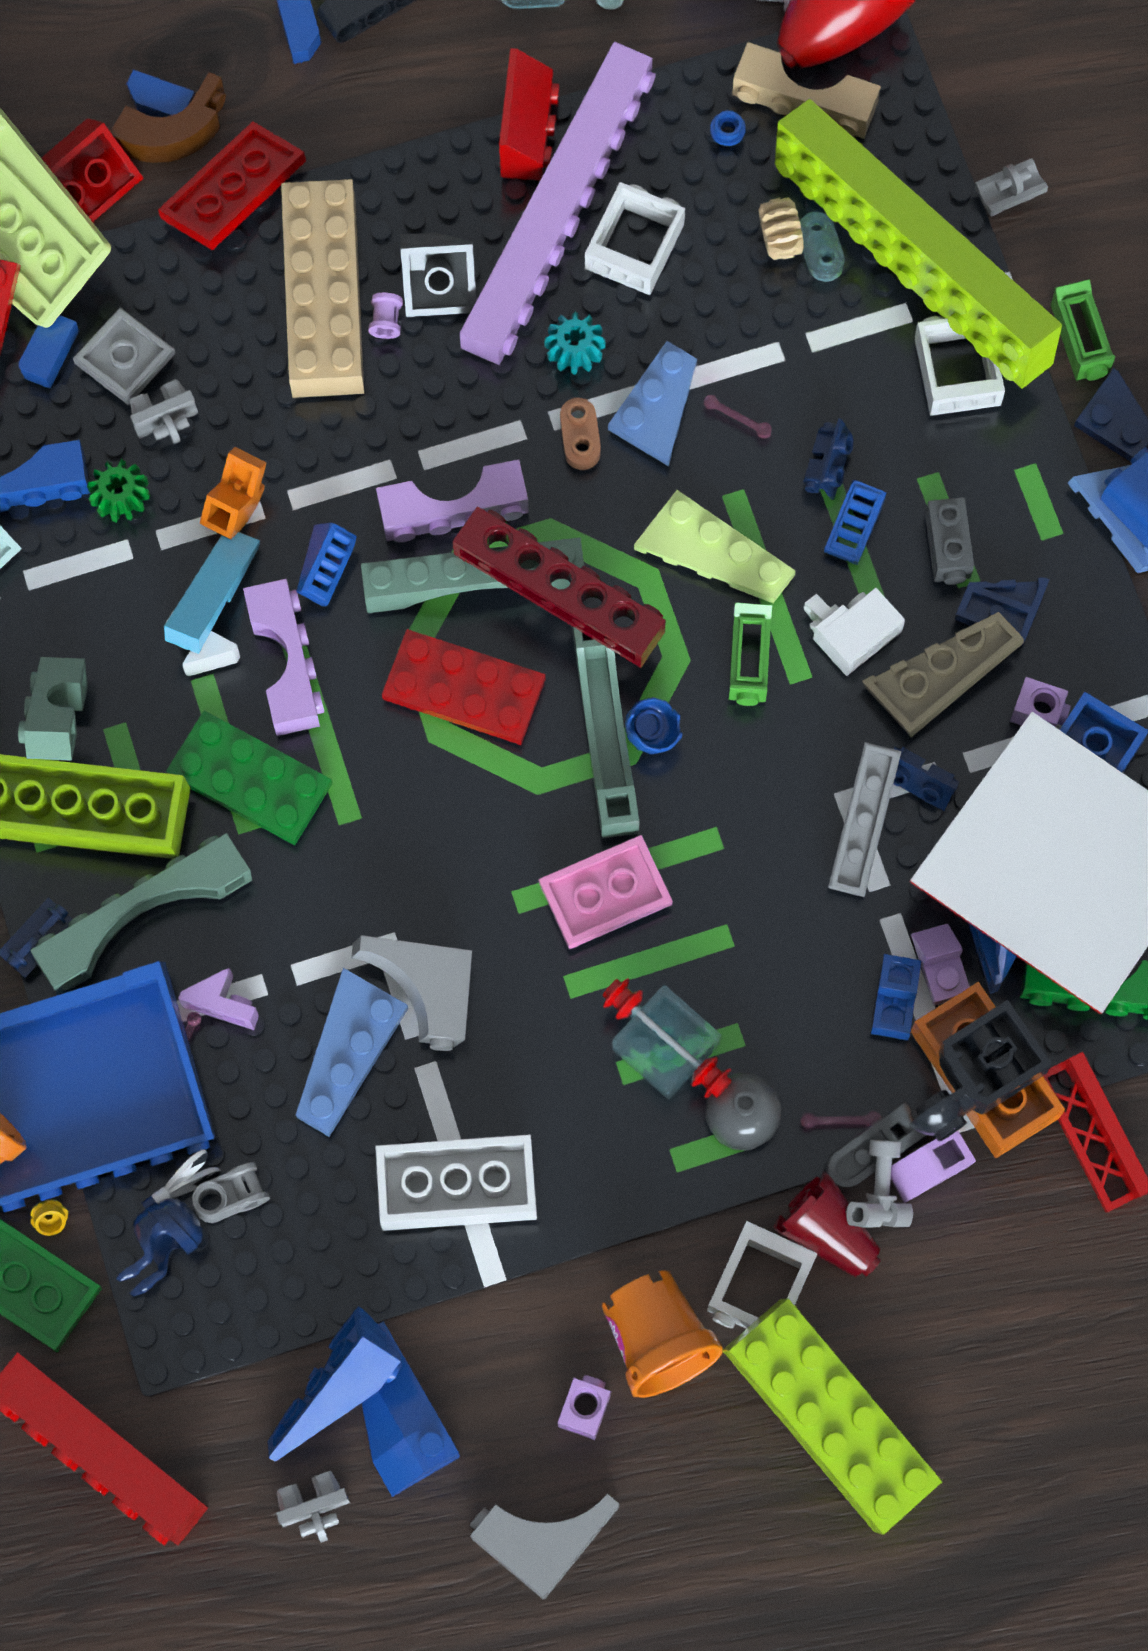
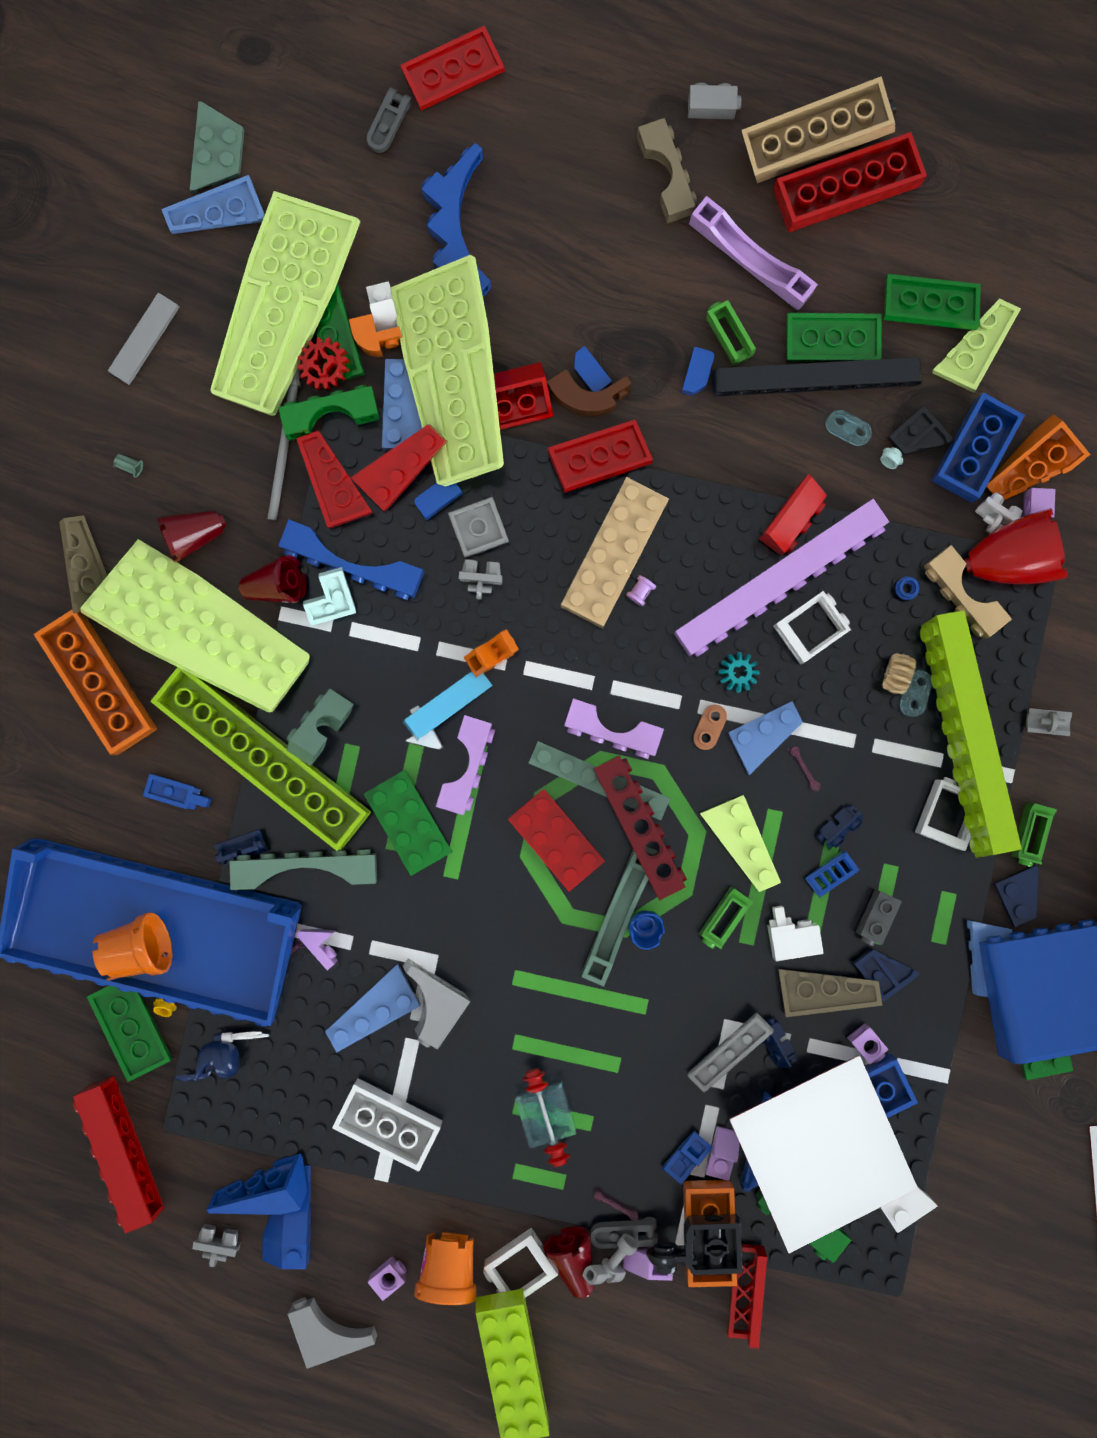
camera: 30 degrees right, 15 degrees up
(115, 504) = (434, 616): green gear -> none
(232, 1192) = (266, 1055): light grey piece -> none
(339, 545) = (525, 717): blue slope -> none
(437, 274) = (685, 583): dark grey slope -> none
(605, 892) = (564, 1006): bright pink plate -> none
(744, 1112) = (569, 1178): dark grey cylinder -> none

